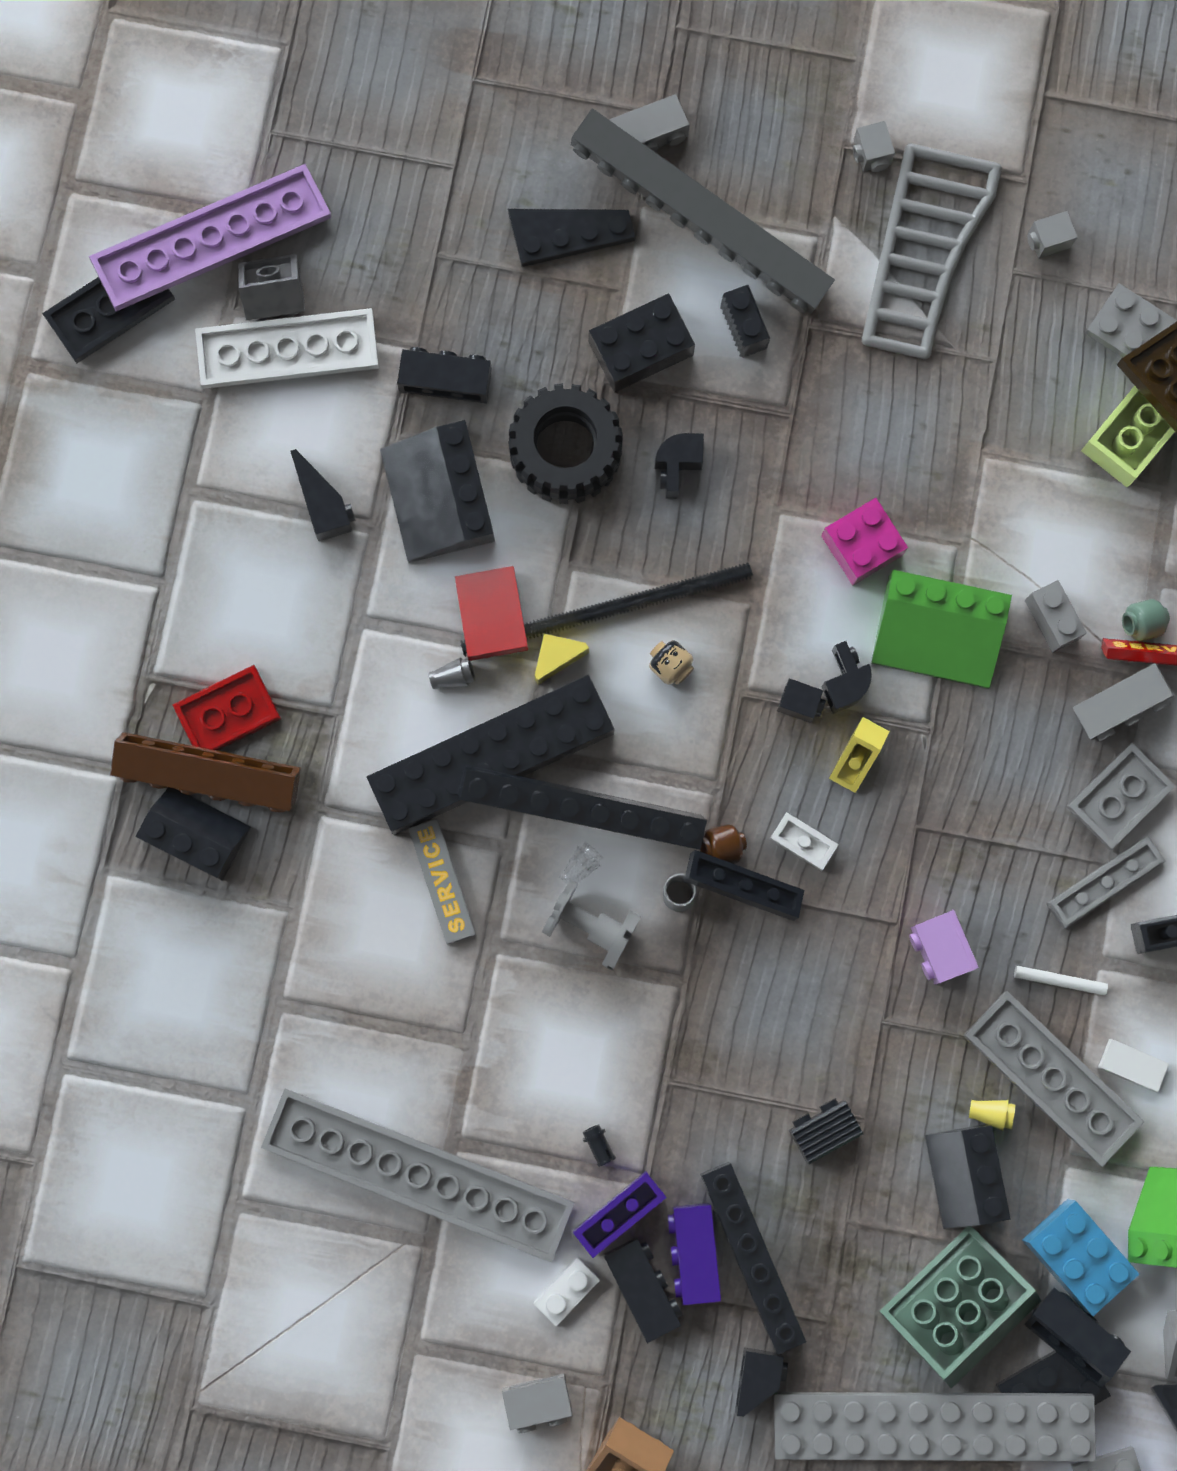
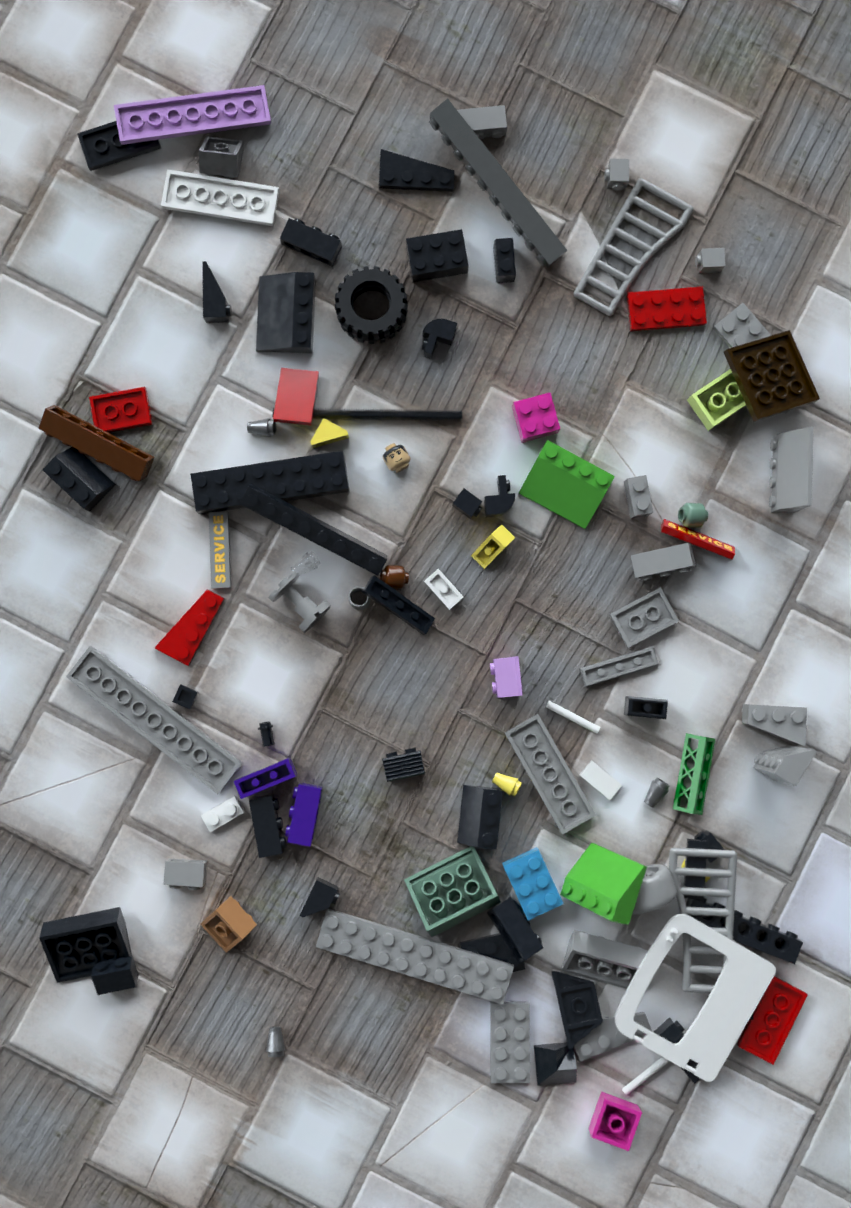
camera: 15 degrees right, 5 degrees up
(432, 1020) = (191, 629): none -> red wing
(456, 1124) = (185, 696): none -> black plate
(753, 1258) = (337, 826): black brick -> none
(1007, 324) = (666, 308): none -> red plate

